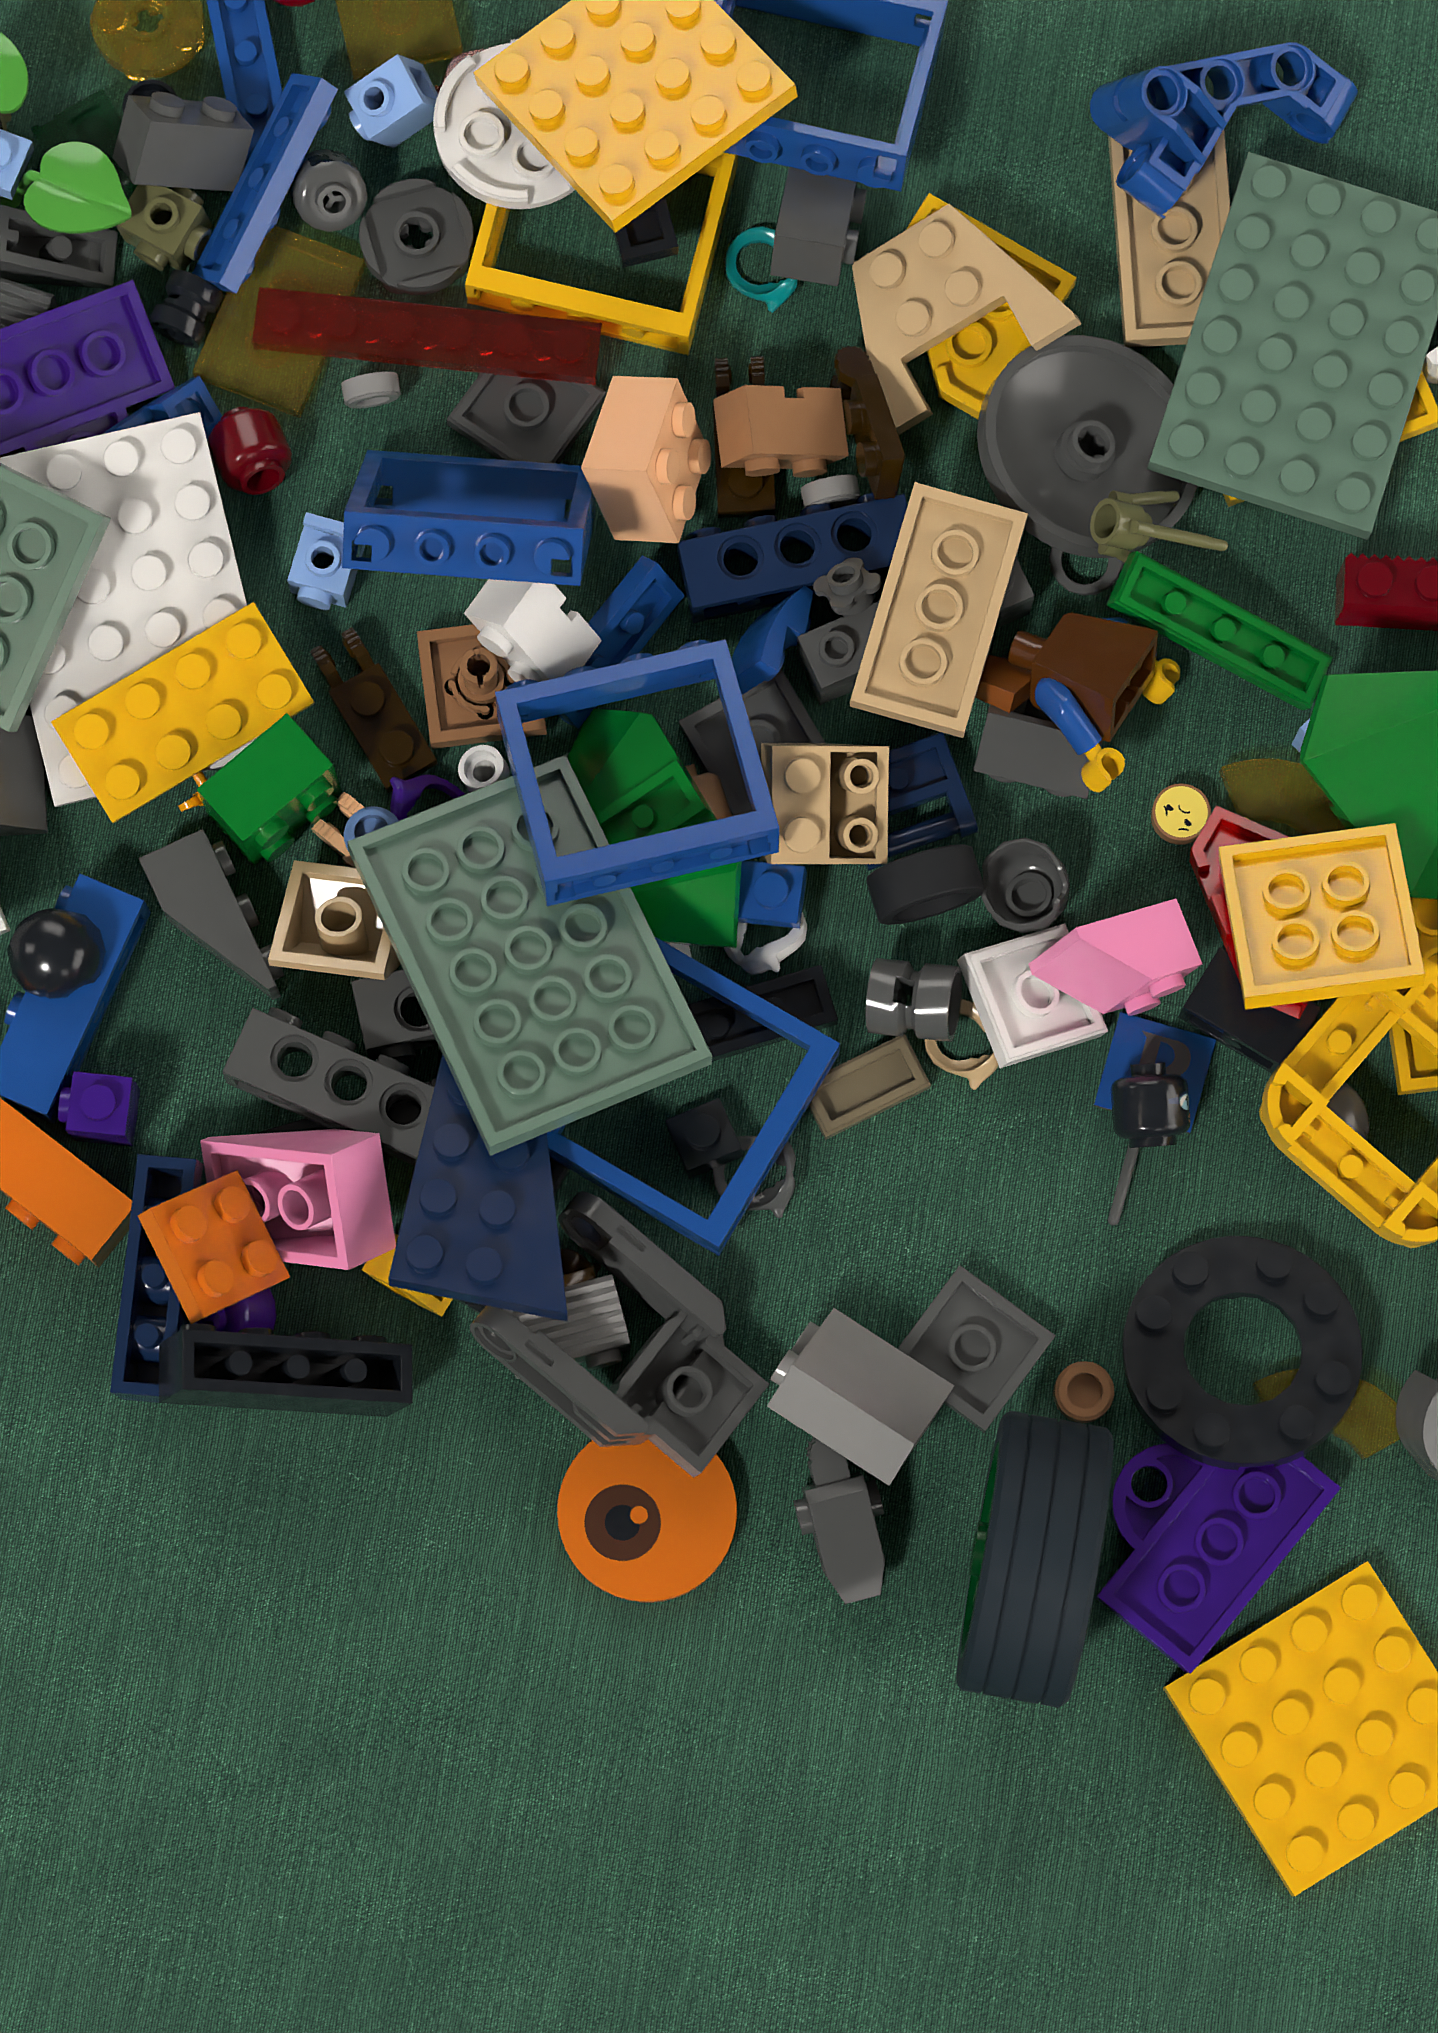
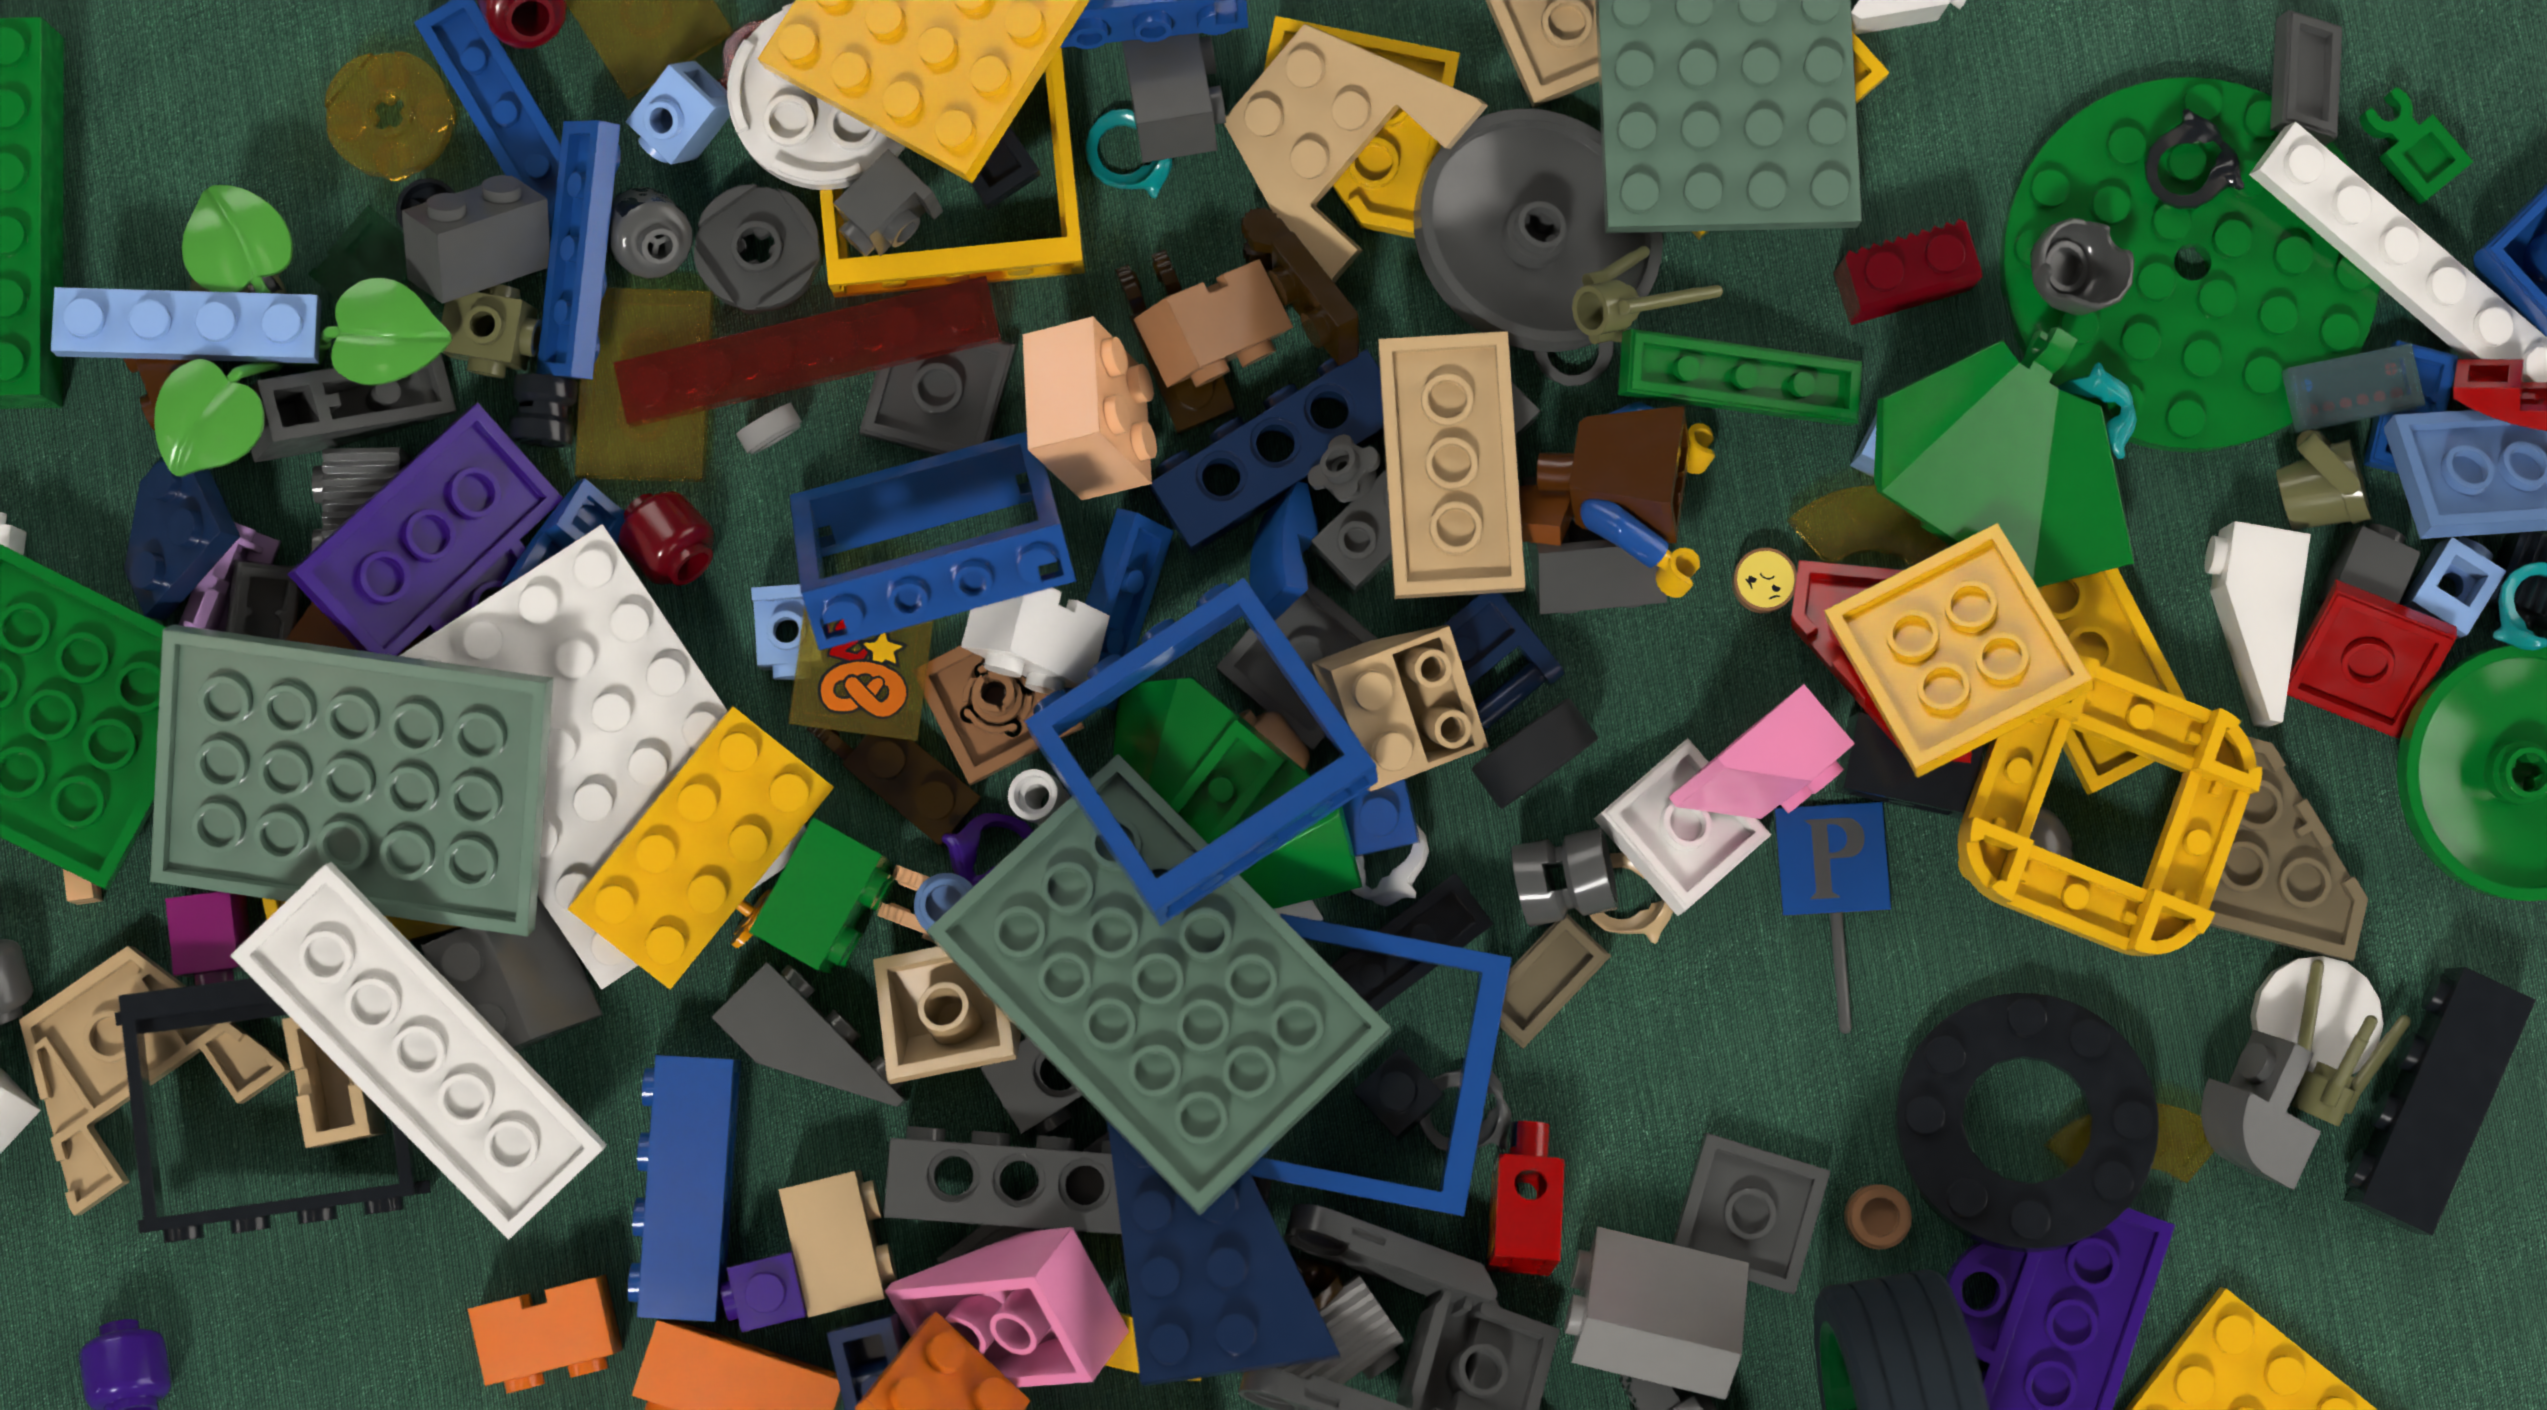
camera: 25 degrees left, 5 degrees up
(55, 953) = (663, 1150): black hair -> none
(175, 1089) = (837, 1242): none -> tan brick
(373, 618) = (863, 684): none -> tile
(536, 231) = (885, 206): none -> dark grey brick
(773, 1281) = (1523, 1231): none -> red torso
(836, 490) = (1287, 370): light grey tile -> none
(1024, 885) = (1635, 716): dark grey hair -> none
(1150, 1106) = (1845, 901): black head -> none

